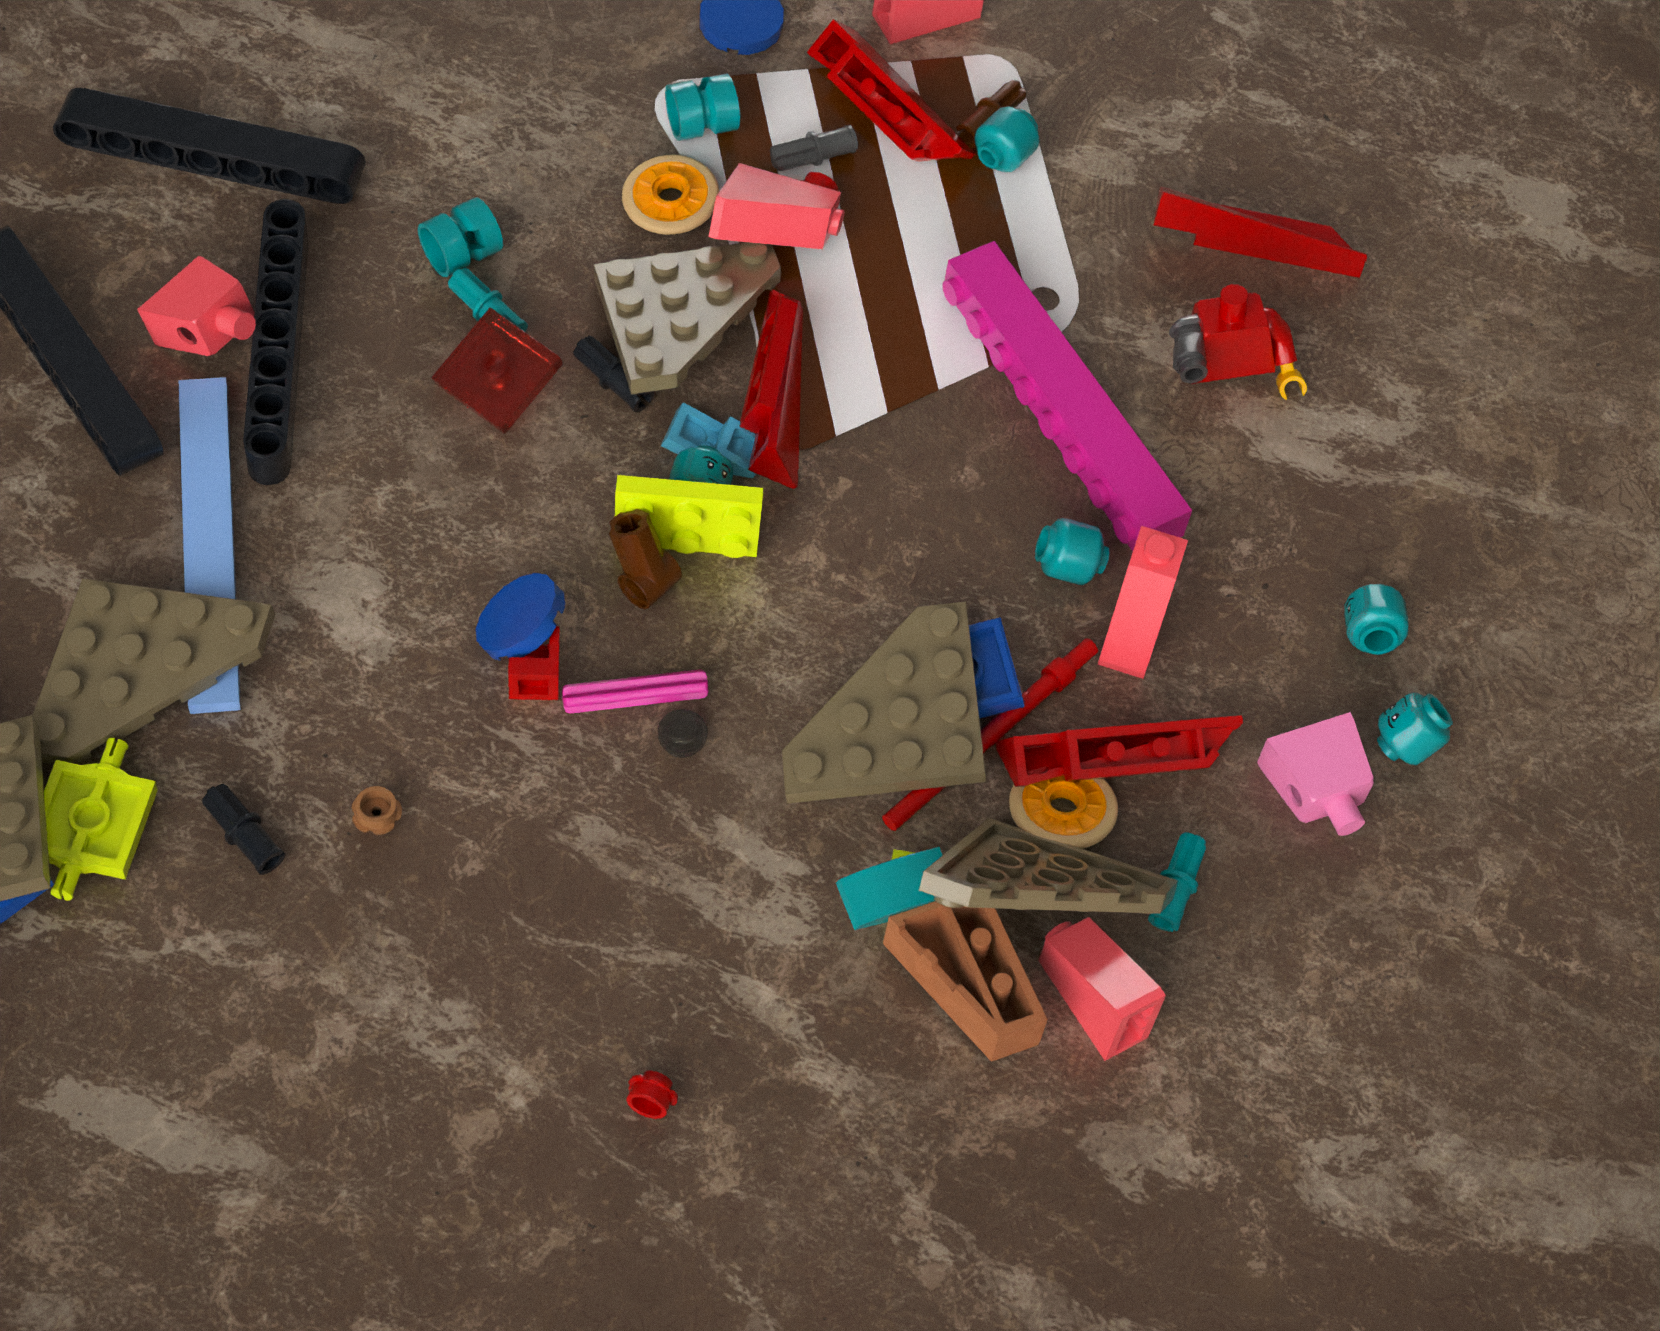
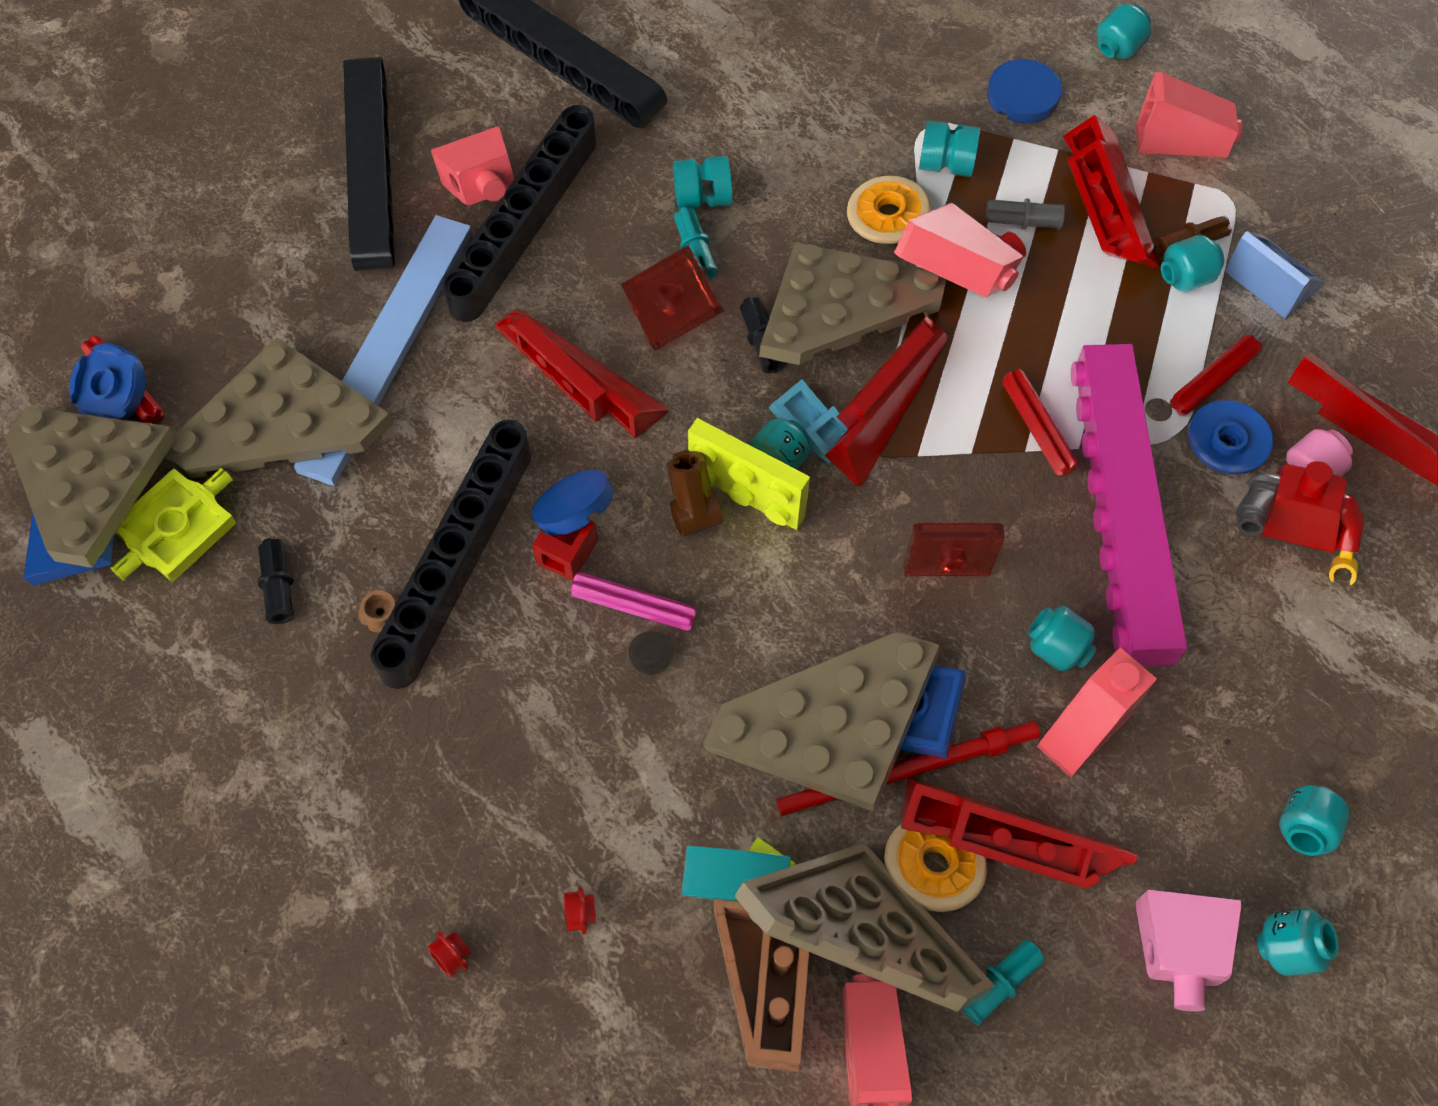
camera: 35 degrees right, 5 degrees up
(426, 736) = (452, 569): none -> black beam
(438, 491) = (580, 376): none -> red wedge
(754, 998) = (579, 910): none -> red plate
(929, 507) = (953, 549): none -> clear red plate
(940, 354) = (1040, 423): none -> red axle
(1082, 243) = (1215, 374): none -> red axle
(1085, 123) = (1272, 274): none -> medium blue slope
(1129, 285) = (1237, 425): none -> blue dish
(1215, 274) = (1325, 447): none -> bright pink head

